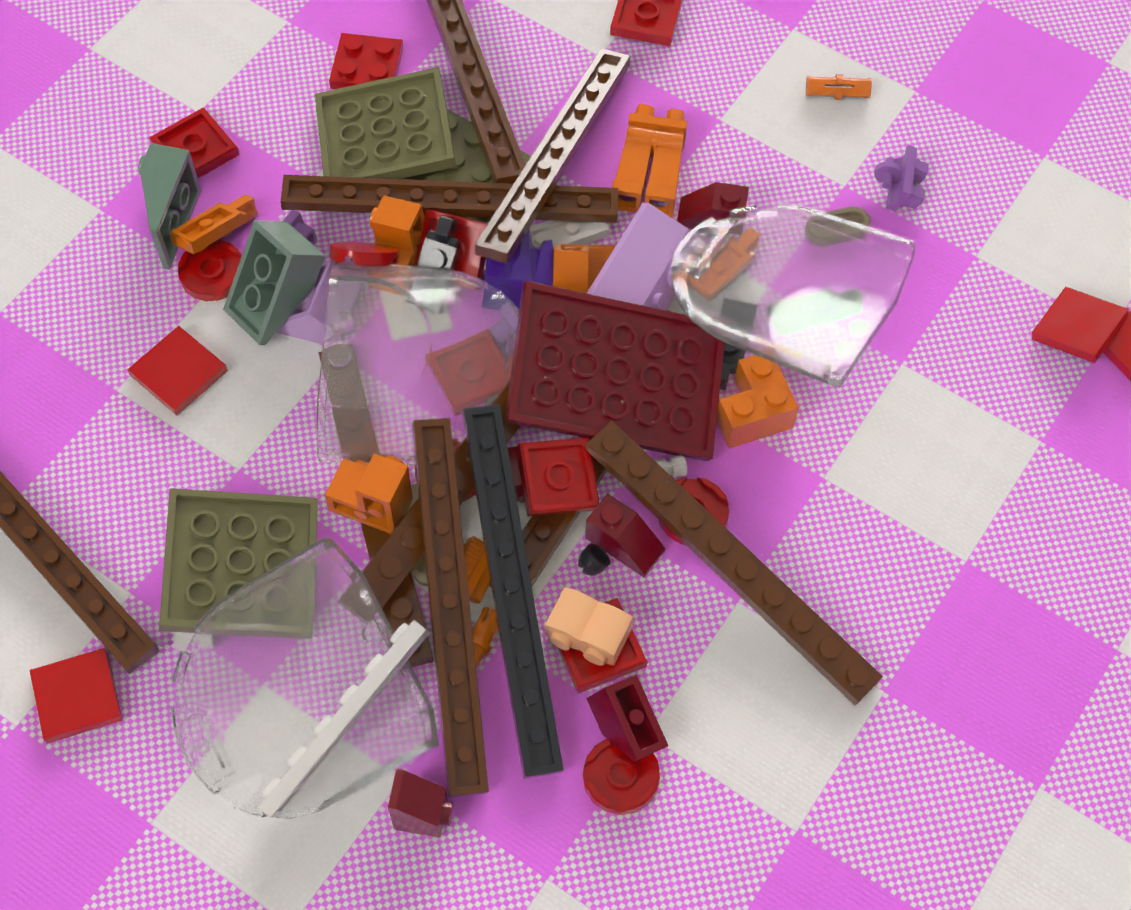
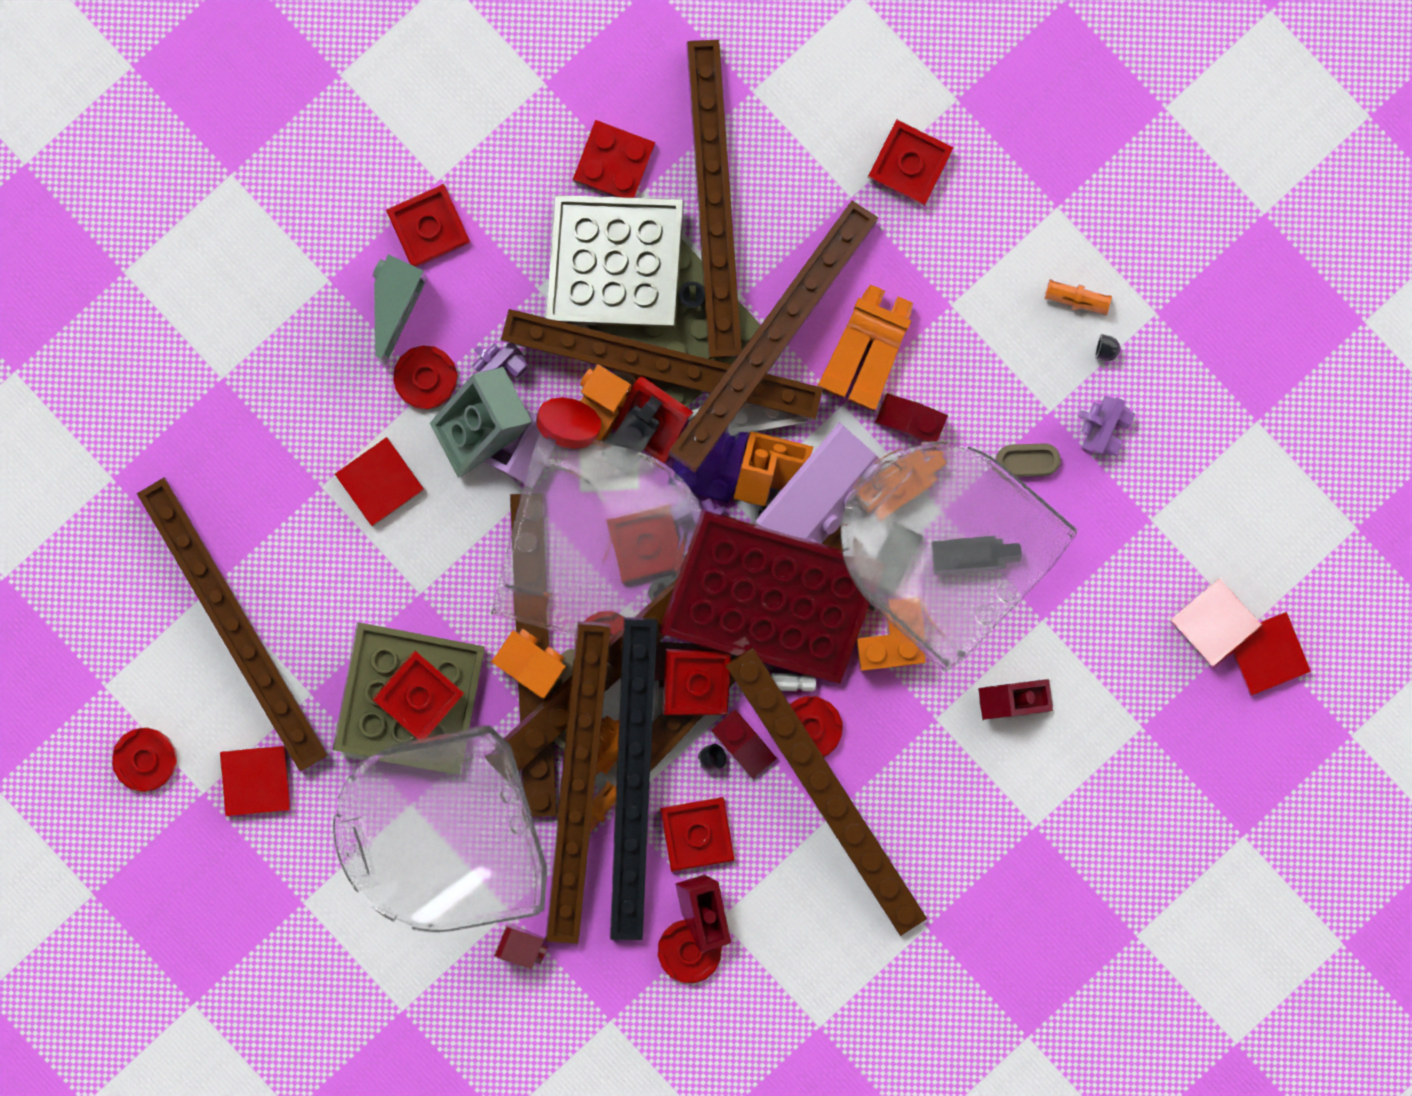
camera: 10 degrees right, 25 degrees up
(213, 224) = (434, 336): orange hinge -> none
(246, 546) = (417, 696): none -> red plate
(333, 730) = (482, 859): white plate -> none
(474, 136) = (685, 294): none -> black hinge
(588, 627) = (690, 825): light nougat brick -> none
(880, 119) = (1107, 348): none -> black hinge
(900, 433) = (1015, 699): none -> dark red slope

